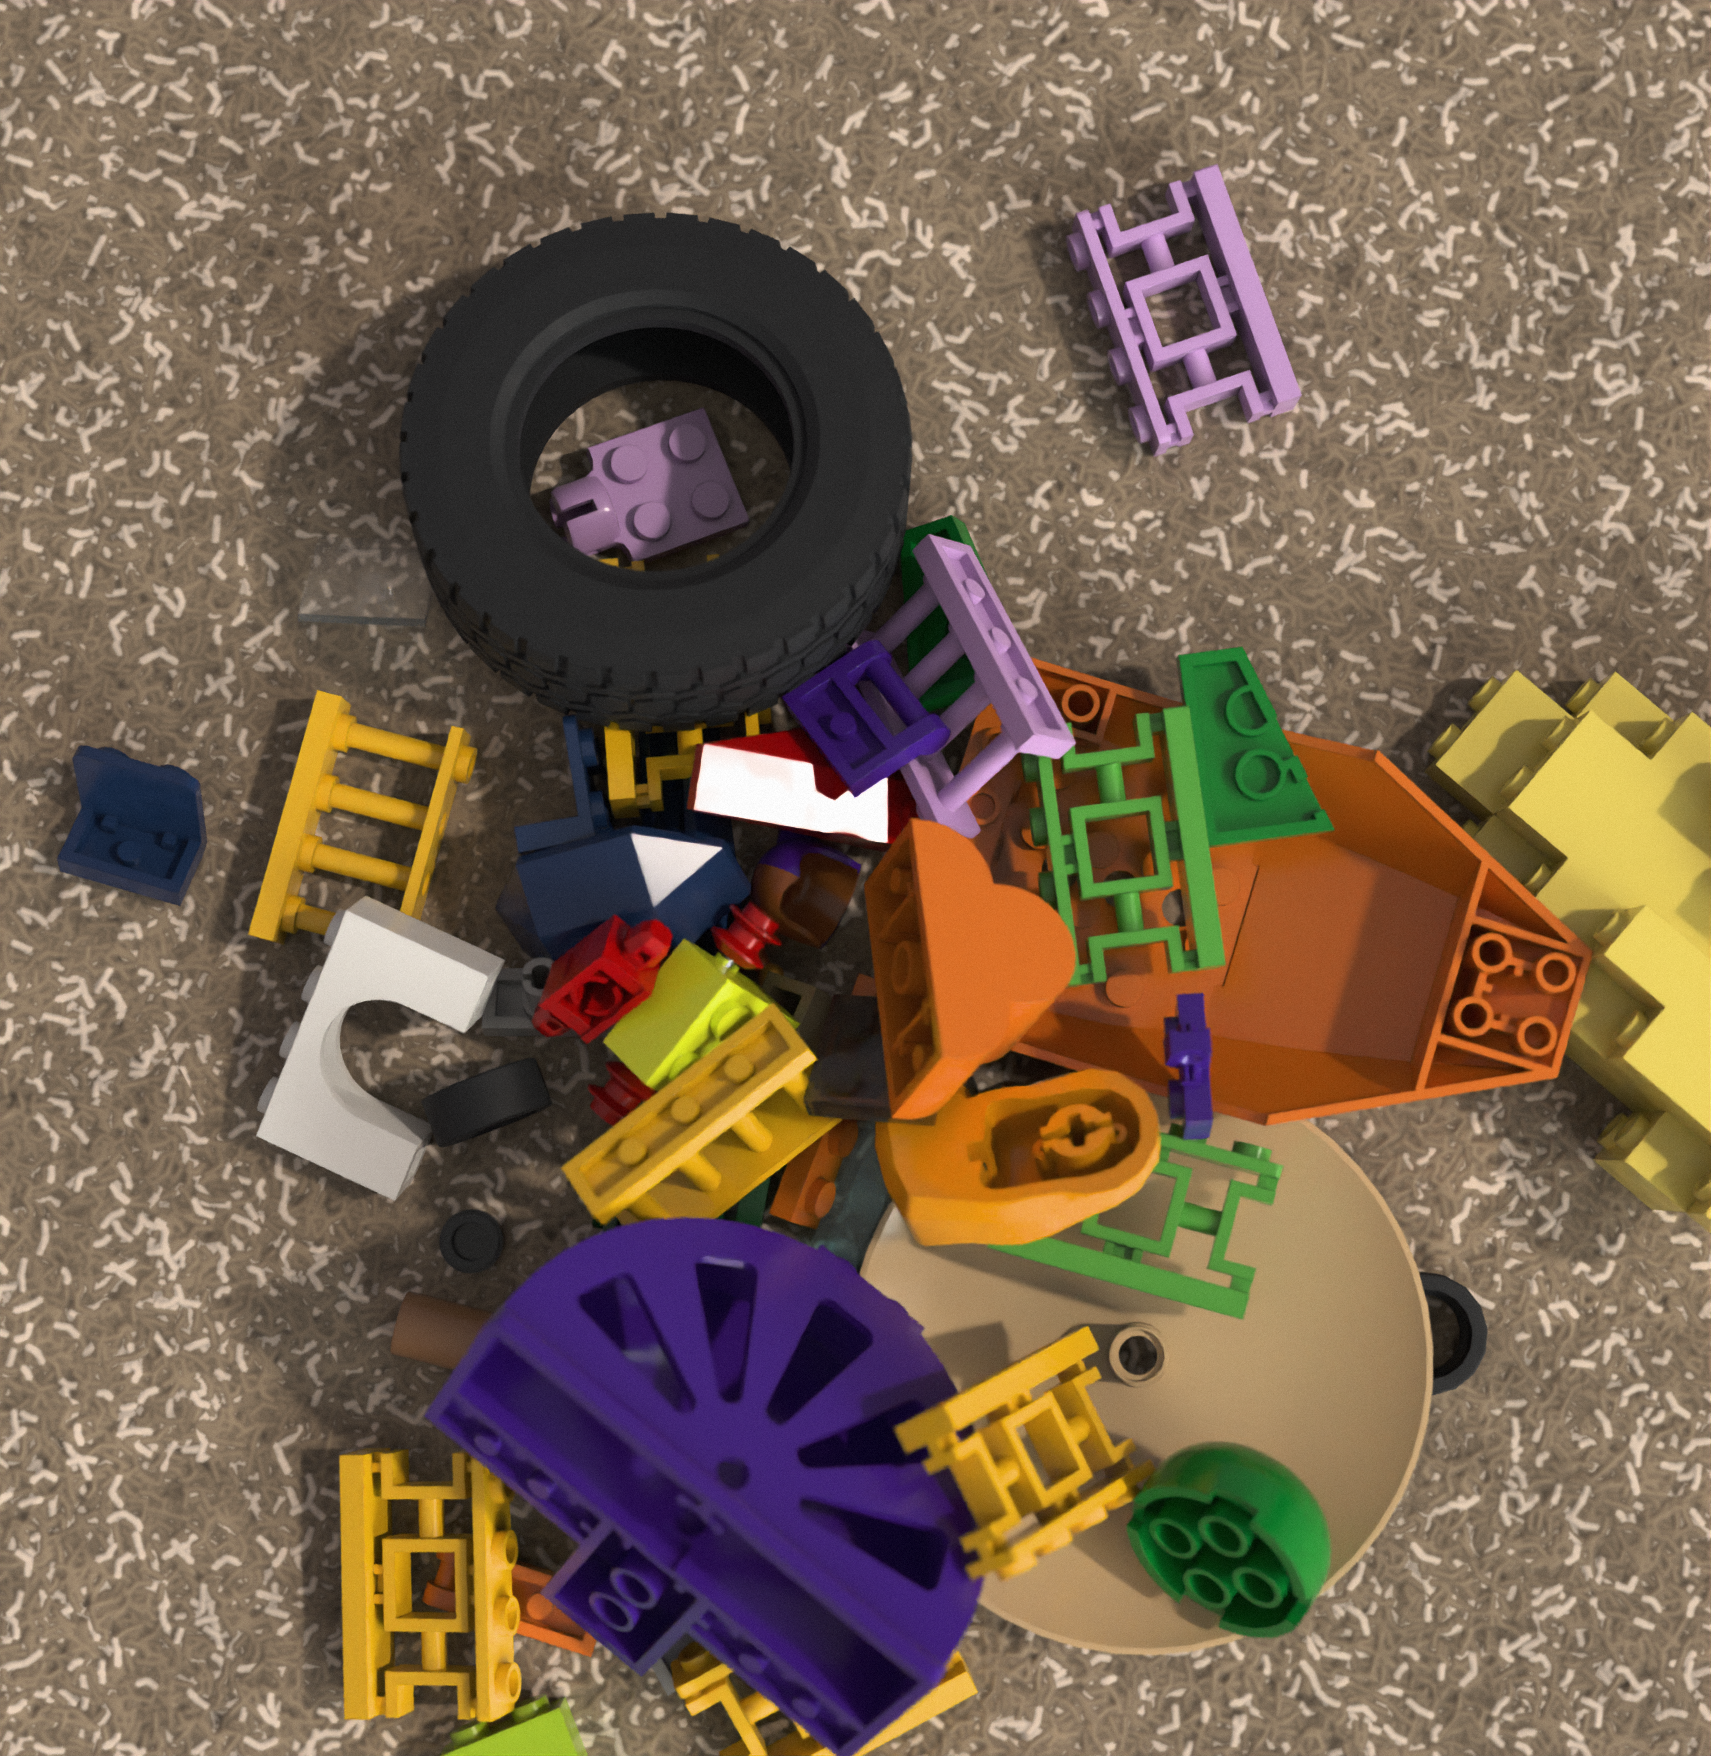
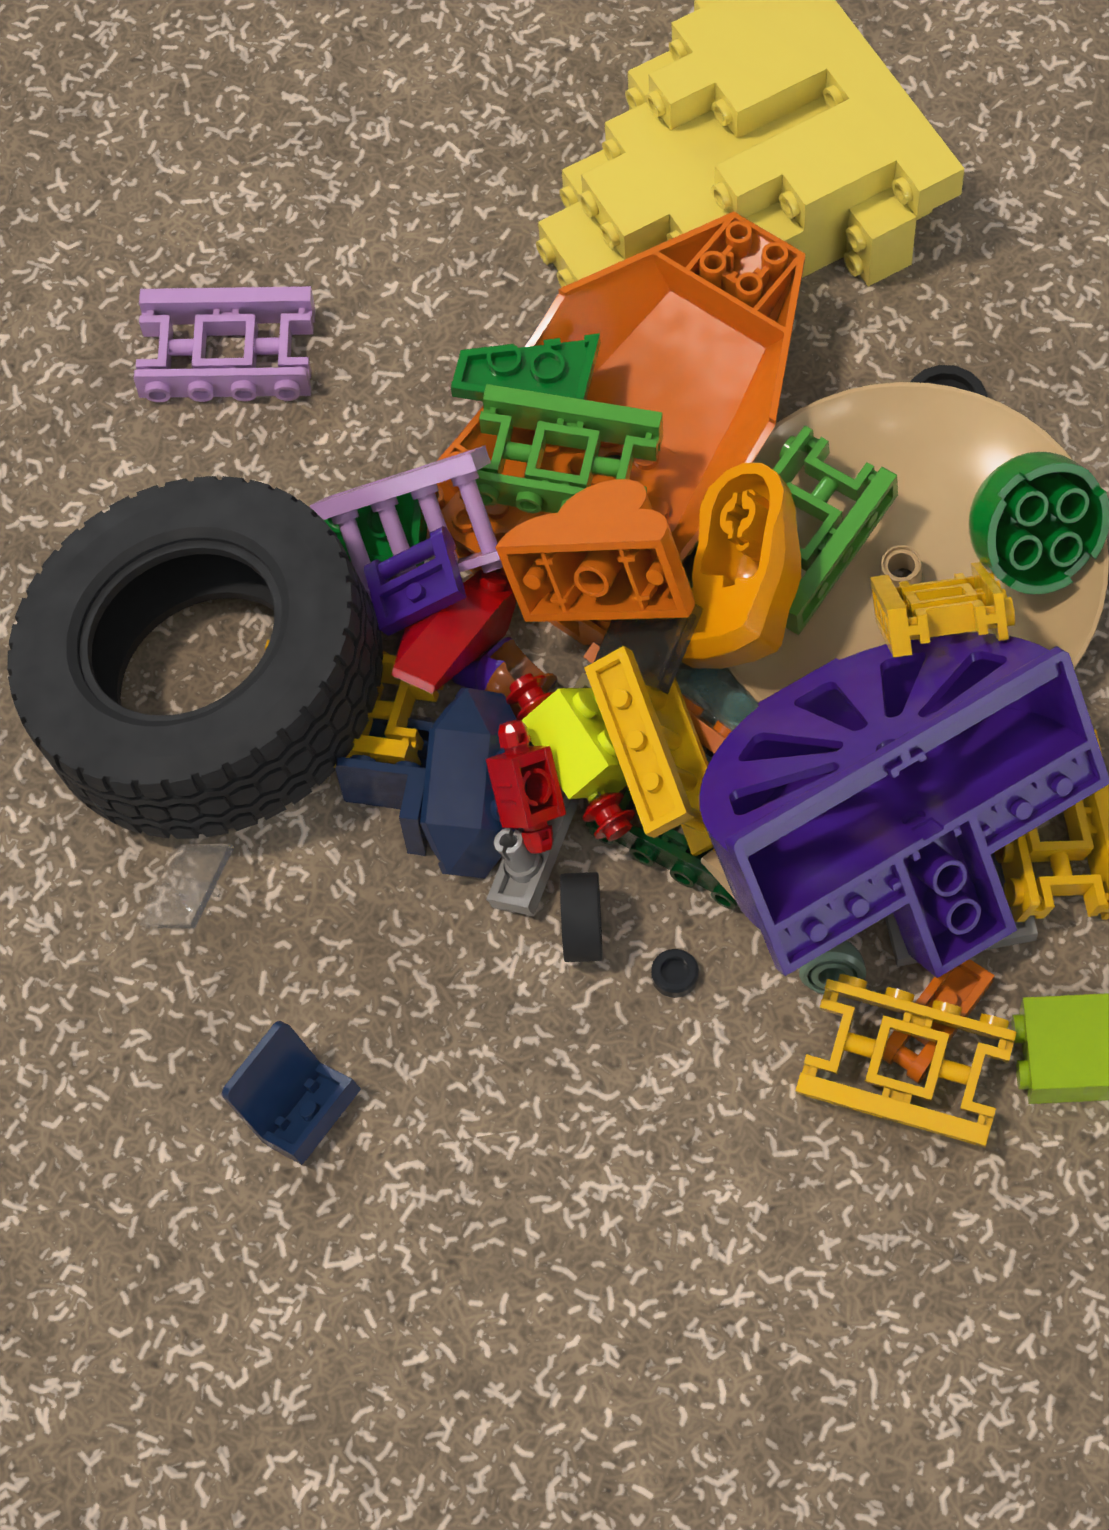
camera: 65 degrees left, 20 degrees down
(315, 1101) = (534, 1037): white arch -> none
(317, 790) = (355, 996): yellow fence -> none
(436, 1329) = (741, 999): medium nougat brick -> none
(651, 492) = (198, 674): lavender plate -> none
(1189, 1050) = (714, 451): dark purple hinge -> none

